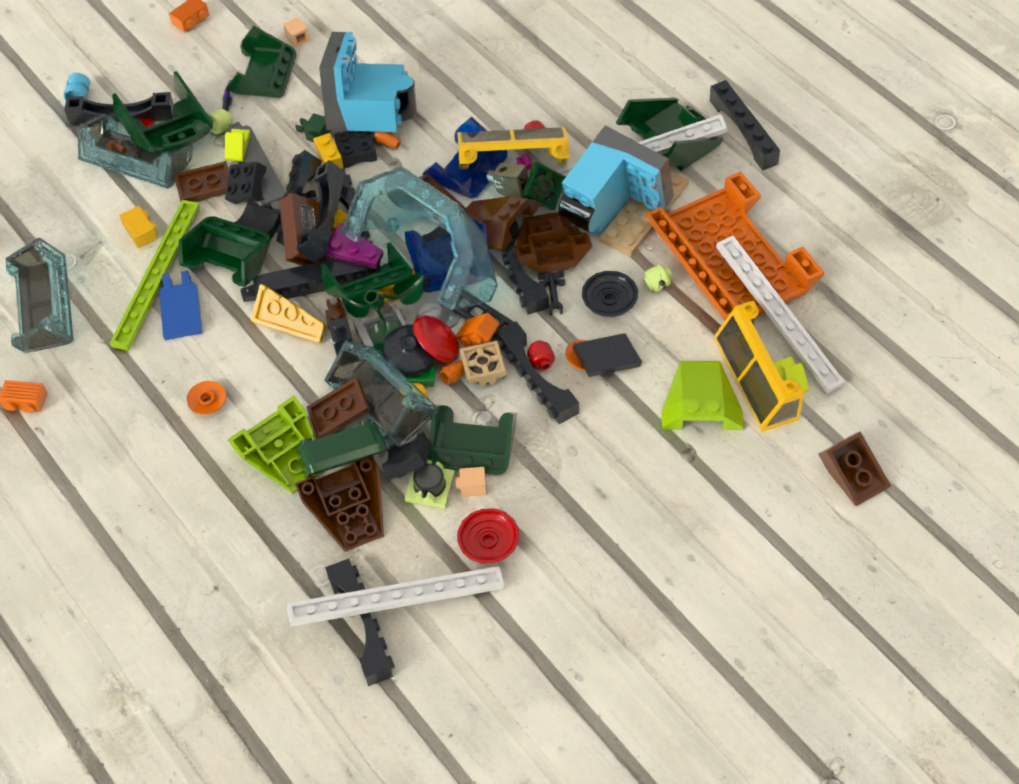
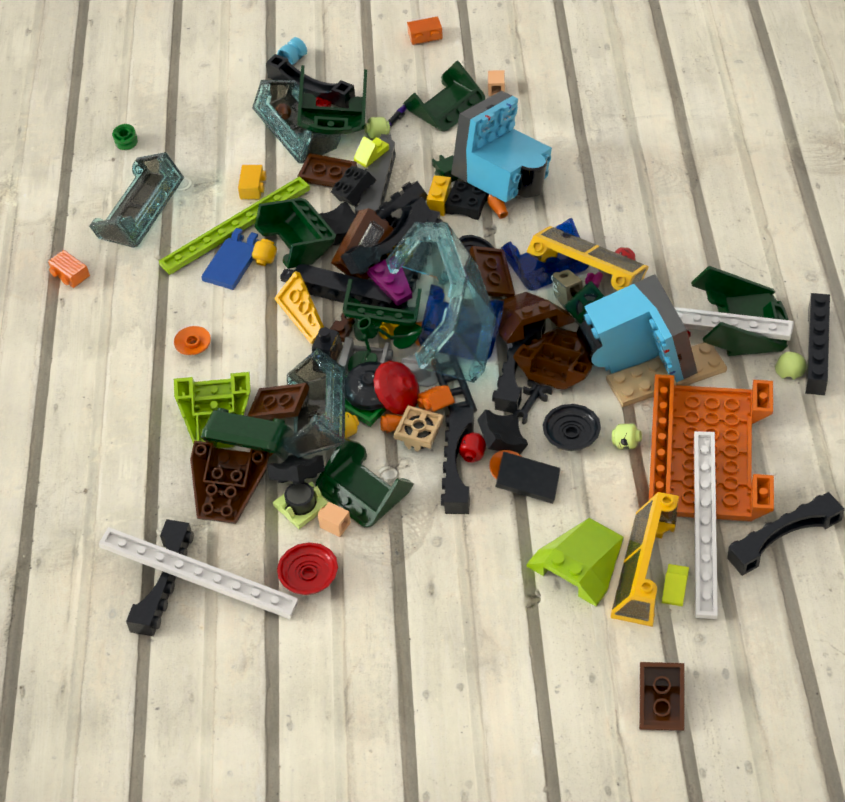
camera: 35 degrees right, 5 degrees down
(207, 283) = (264, 252): none -> yellow head
(556, 329) = (501, 432): none -> black brick
(735, 153) = (791, 365): none -> yellowish green hair
(827, 320) = (820, 512): none -> black arch

